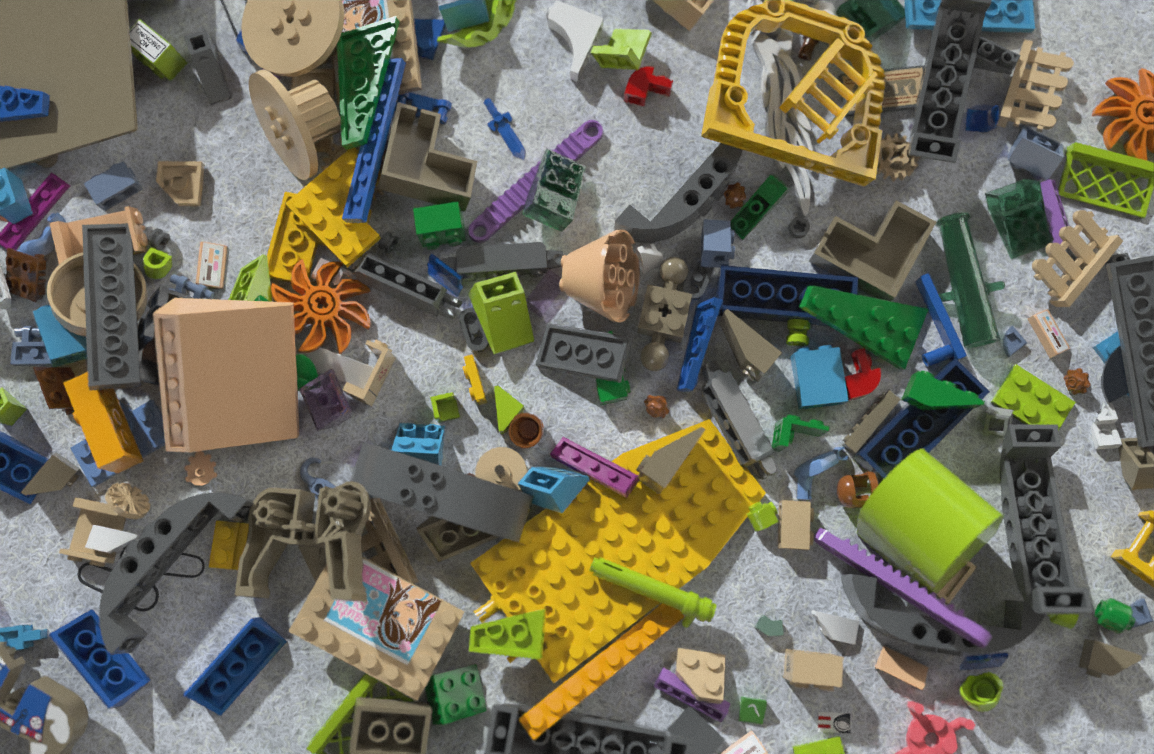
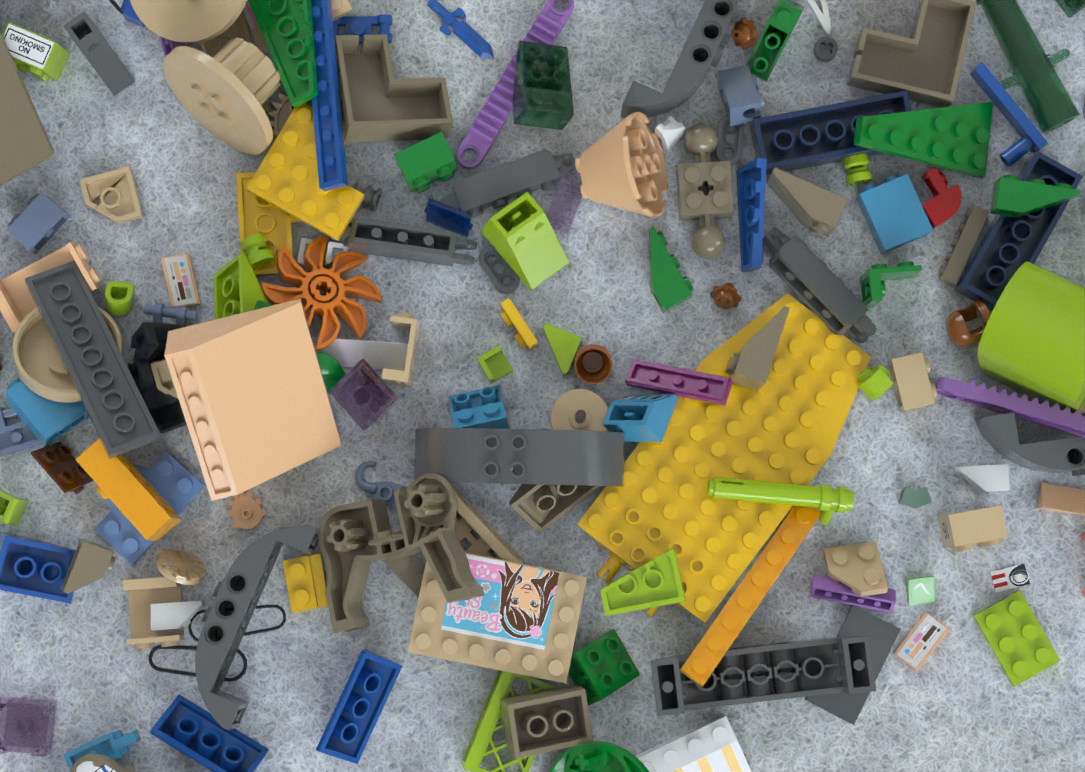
camera: 15 degrees left, 5 degrees up
(158, 239) = (110, 269): dark grey bush -> none
(278, 256) = (256, 250): none -> lime wheel
(584, 352) = (629, 260): dark grey tile -> none
(812, 468) = (915, 313): medium blue arm -> none

